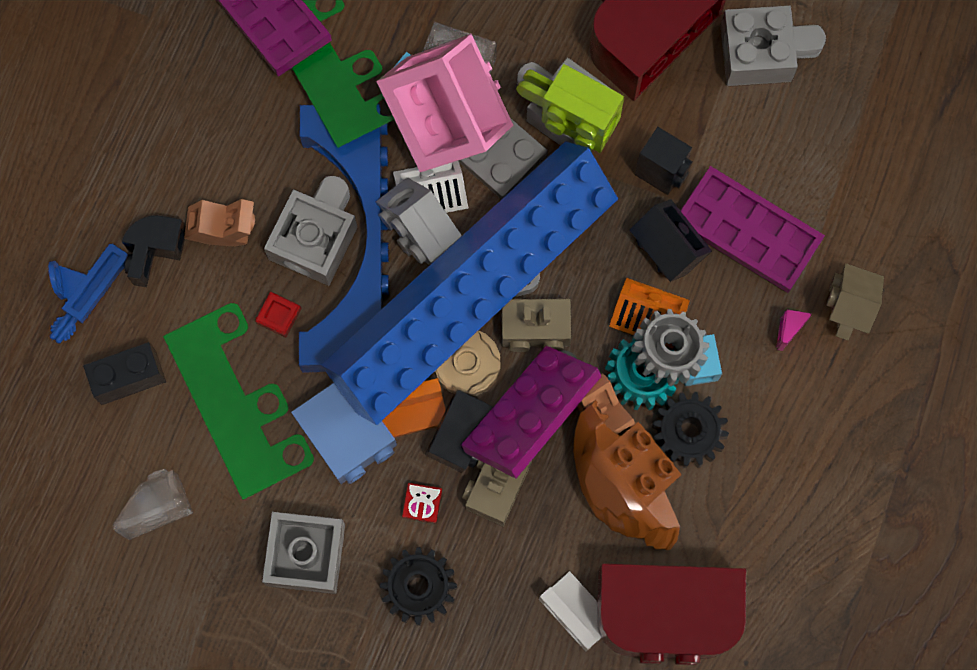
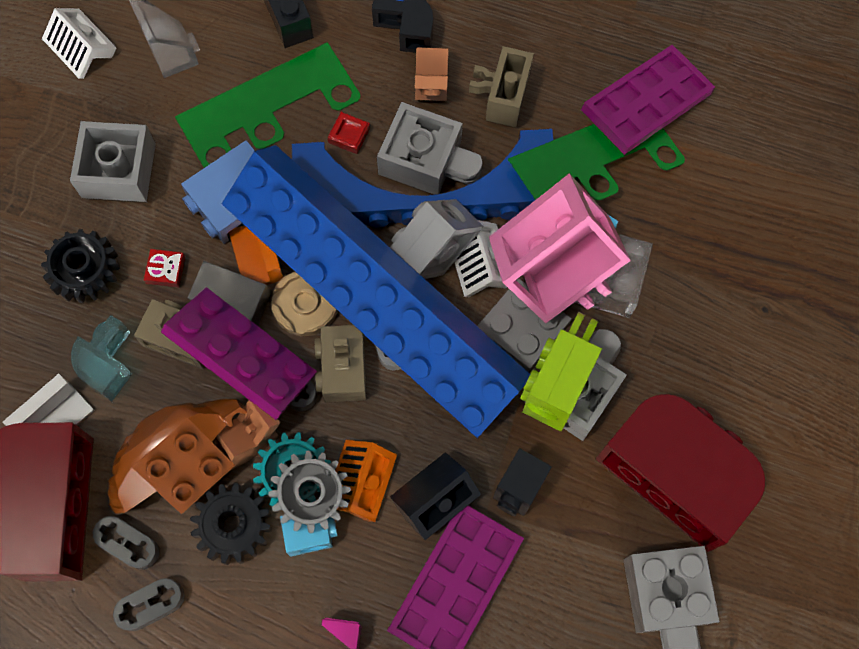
camera: 85 degrees right, 5 degrees down
(142, 607) = (76, 40): none -> white panel
(244, 146) = (505, 86): none -> dark tan brick
(527, 567) = (95, 361): none -> clear light blue brick
(711, 536) = (121, 550): none -> dark grey beam
(769, 504) = (145, 597): none -> dark grey beam

